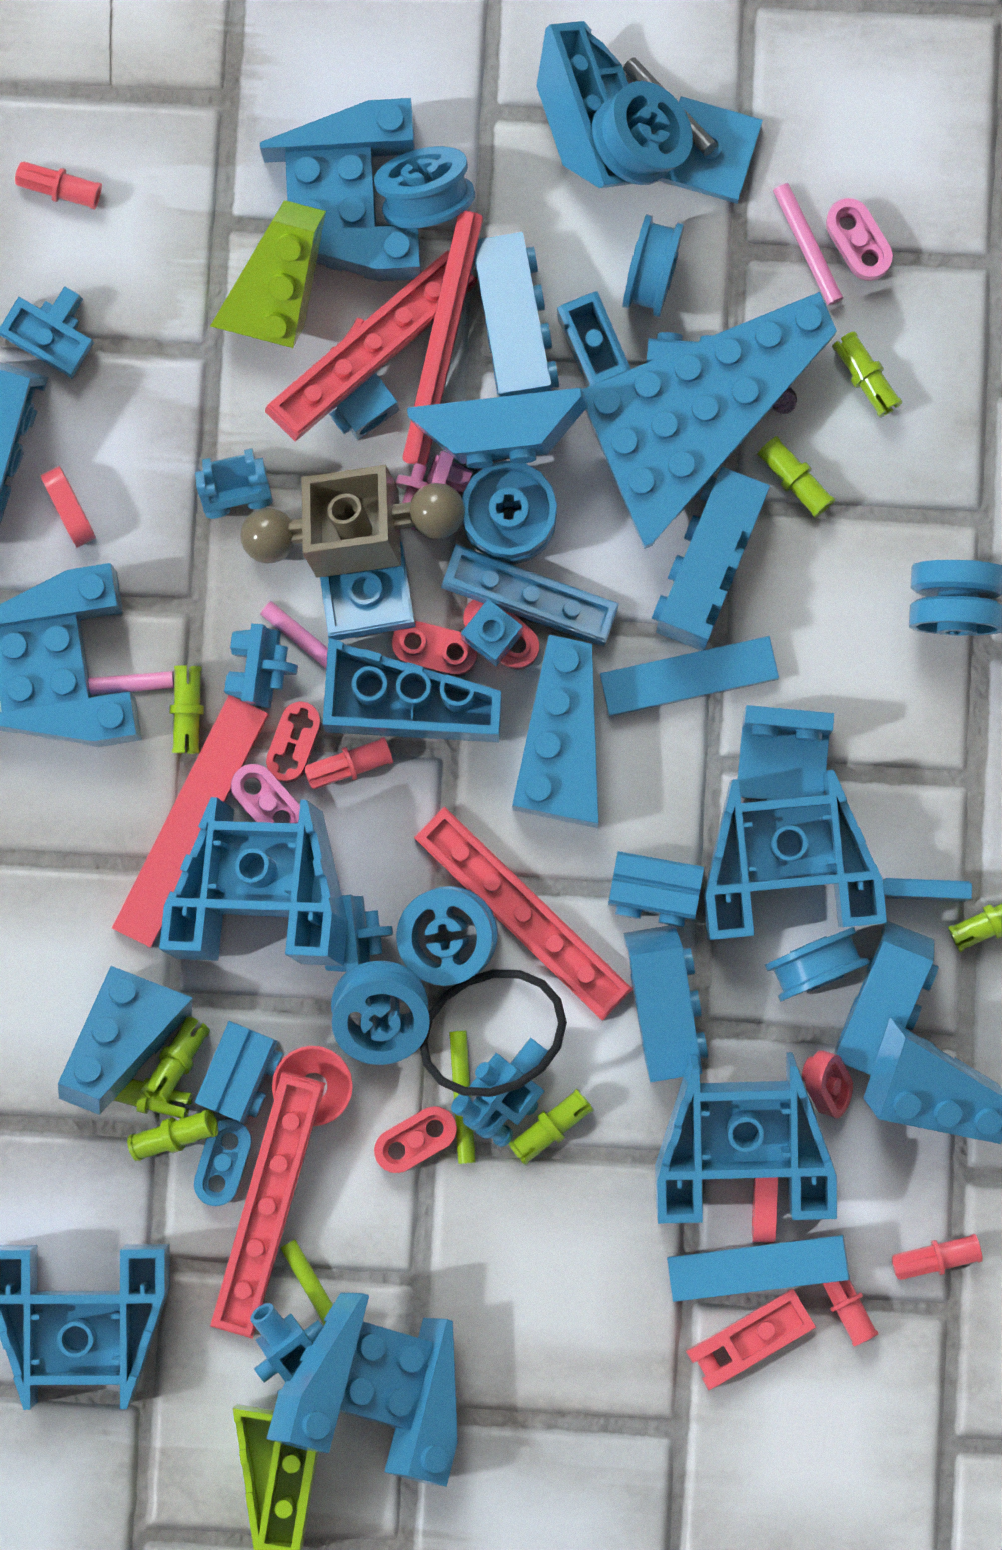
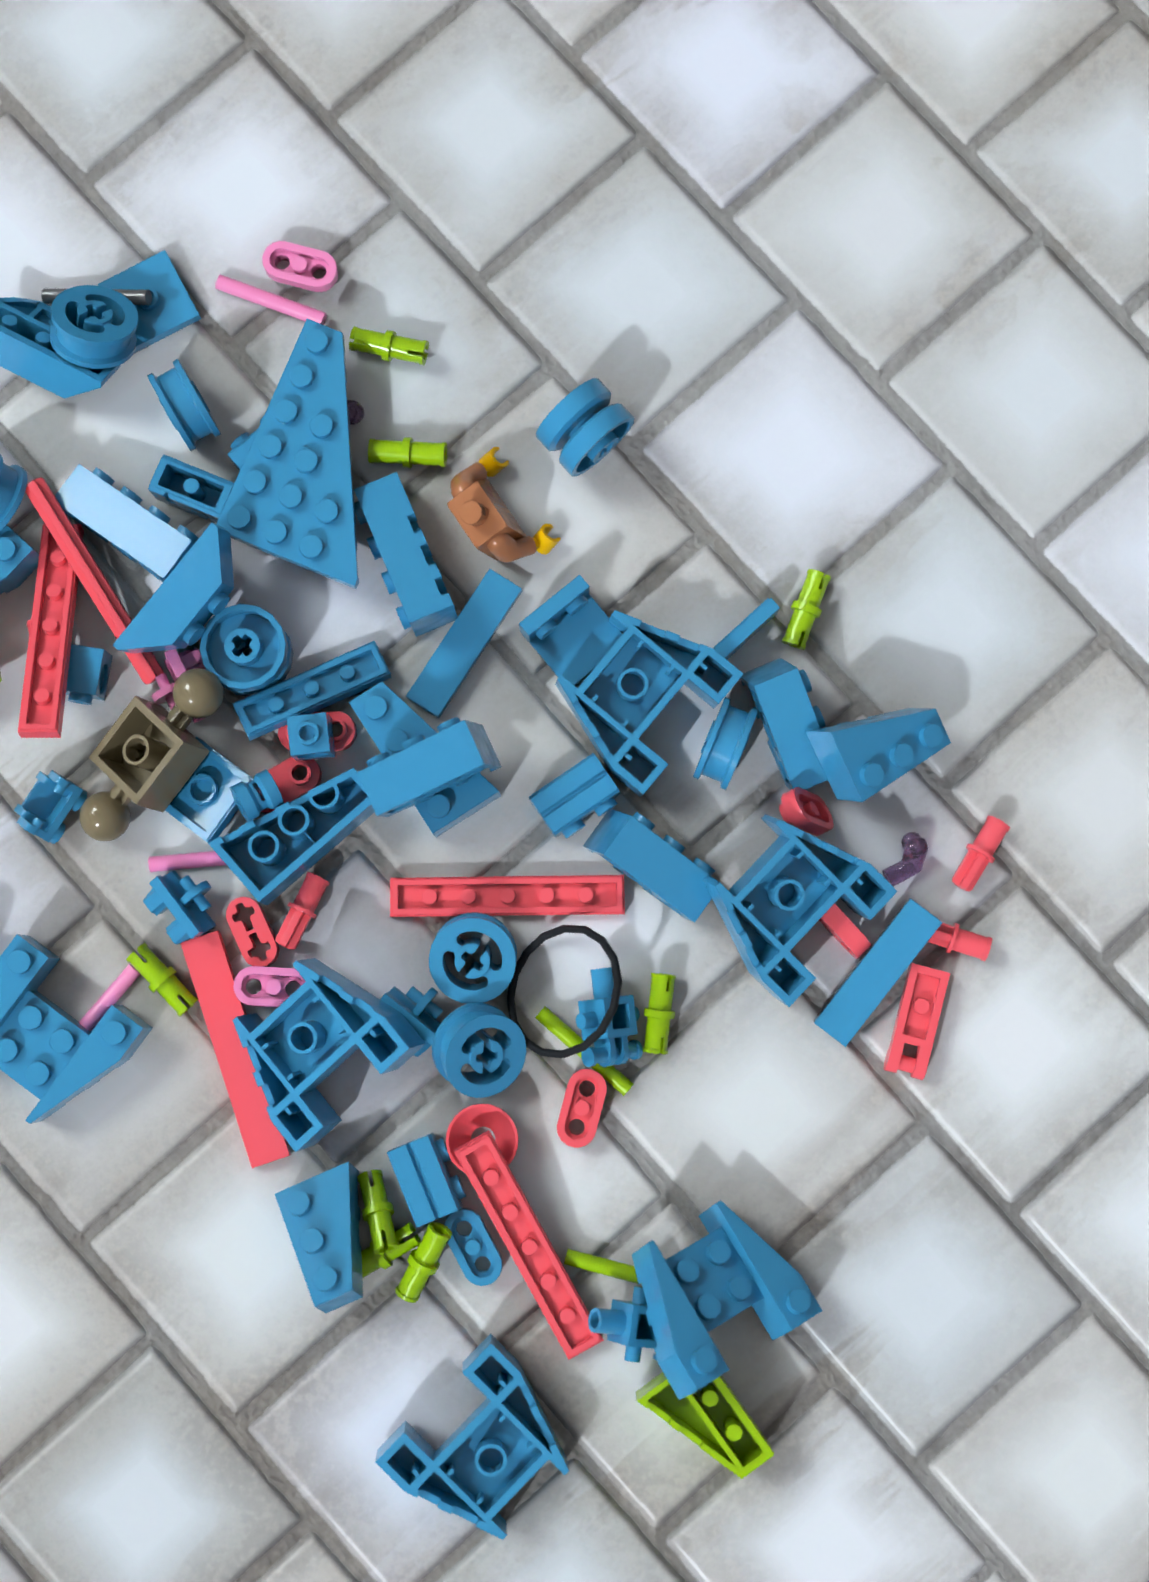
camera: 50 degrees left, 0 degrees up
(403, 637) = (256, 795): none -> dark azure wheel
(560, 749) = (427, 766): none -> dark azure wedge
(807, 593) = (487, 517): none -> nougat torso
(876, 1208) = (912, 860): none -> clear purple arm

